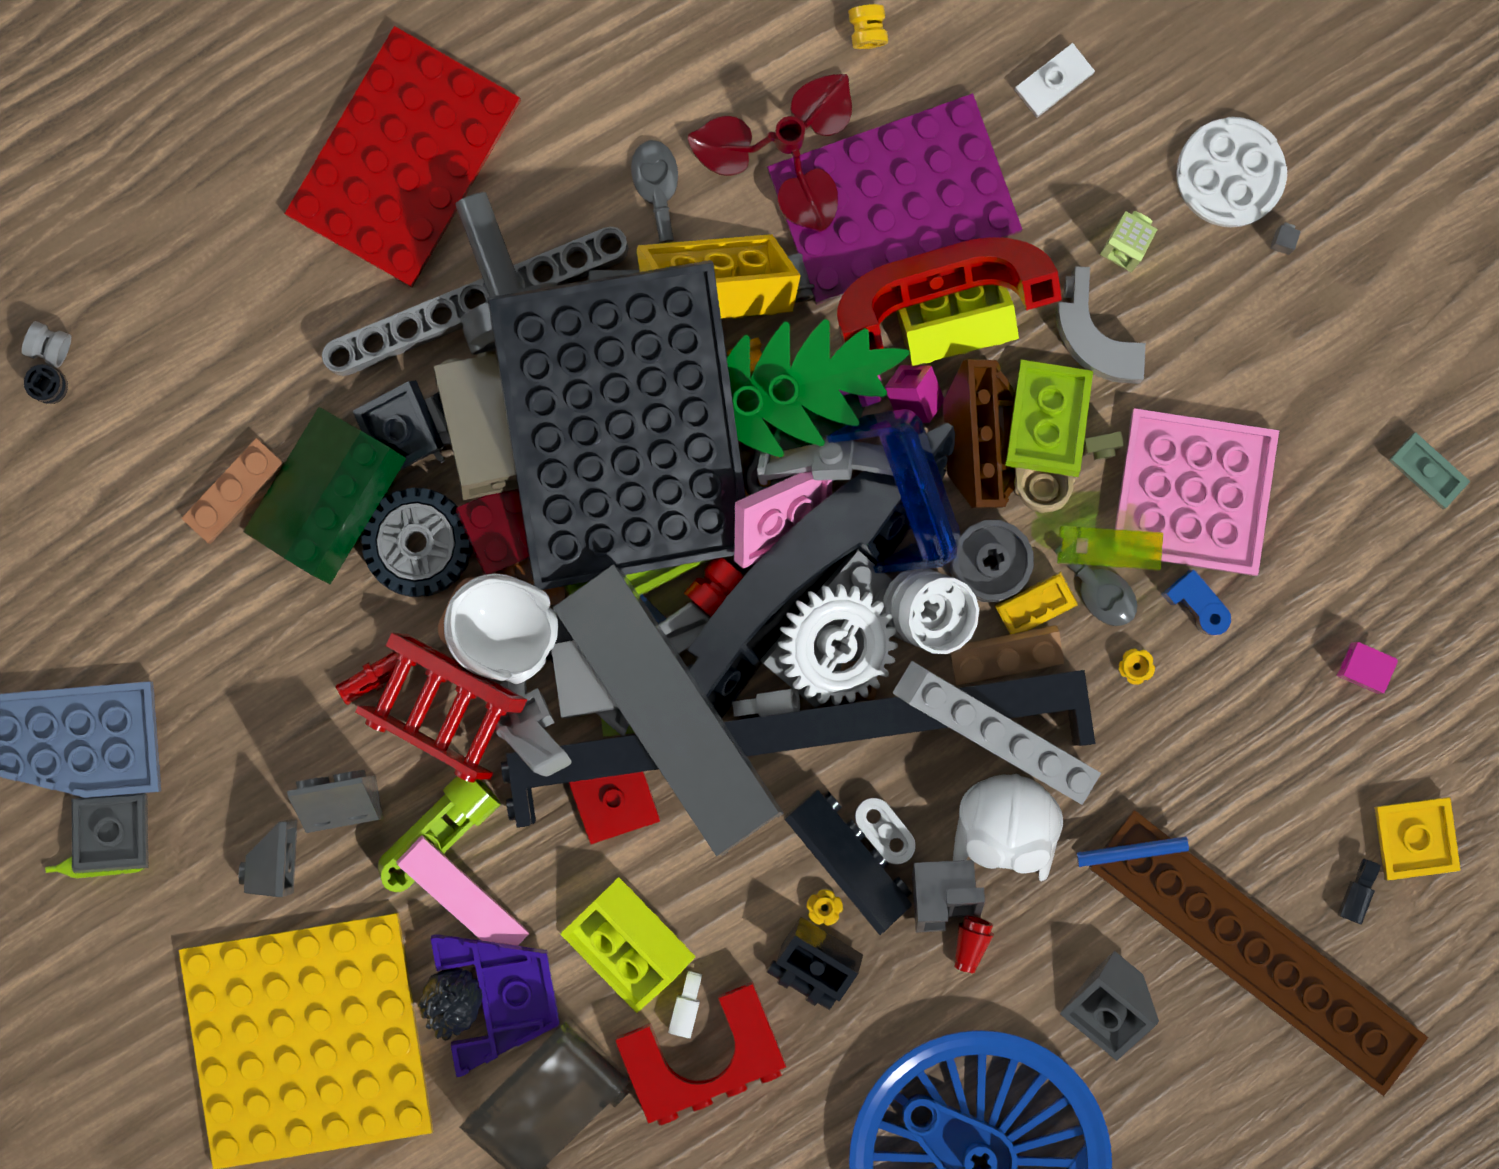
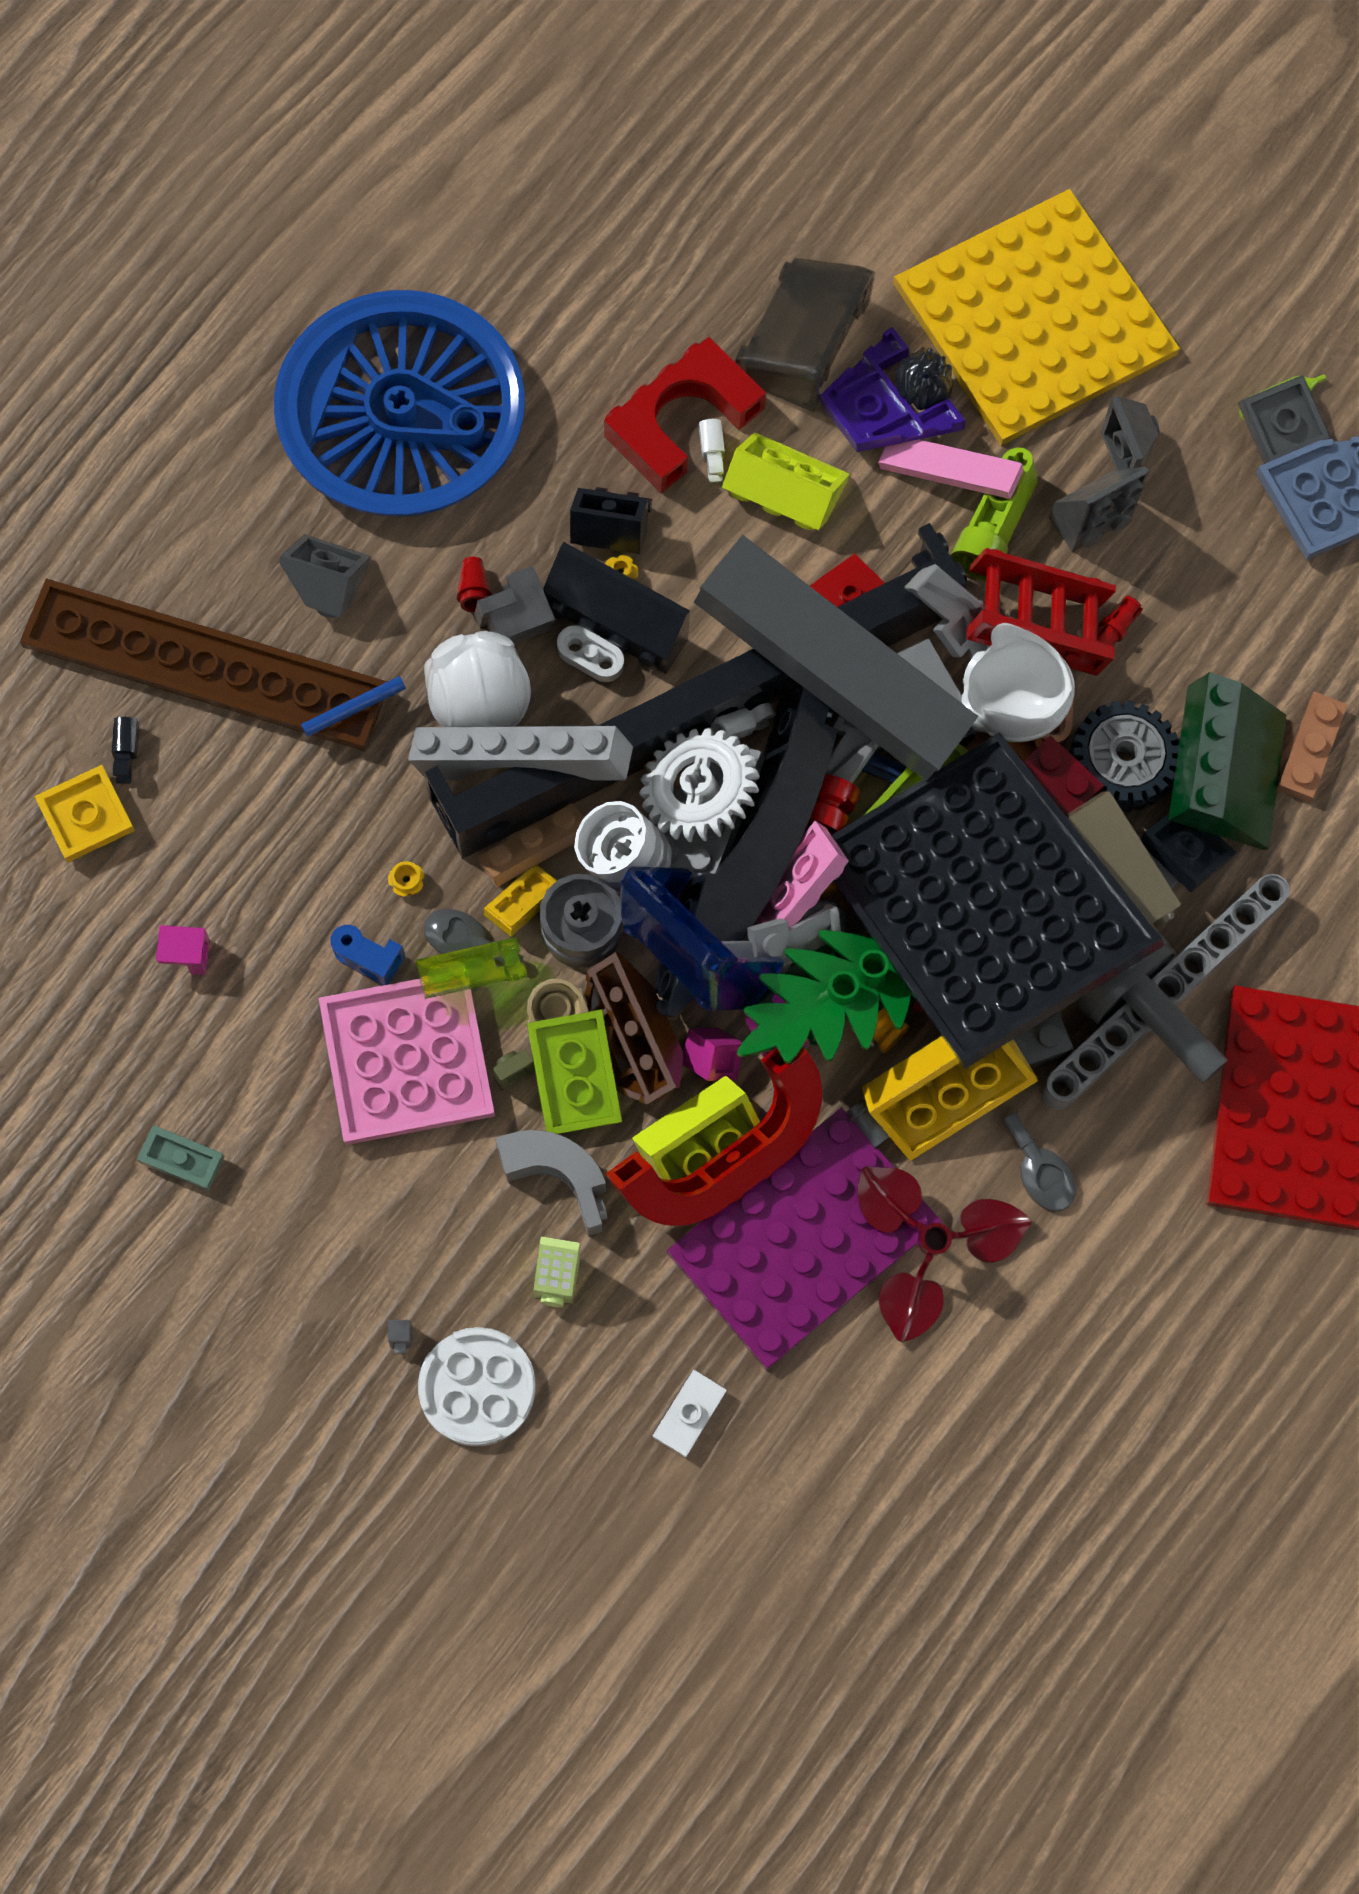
camera: 155 degrees right, 15 degrees down
(868, 26) = (893, 1387): yellow wheel -> none

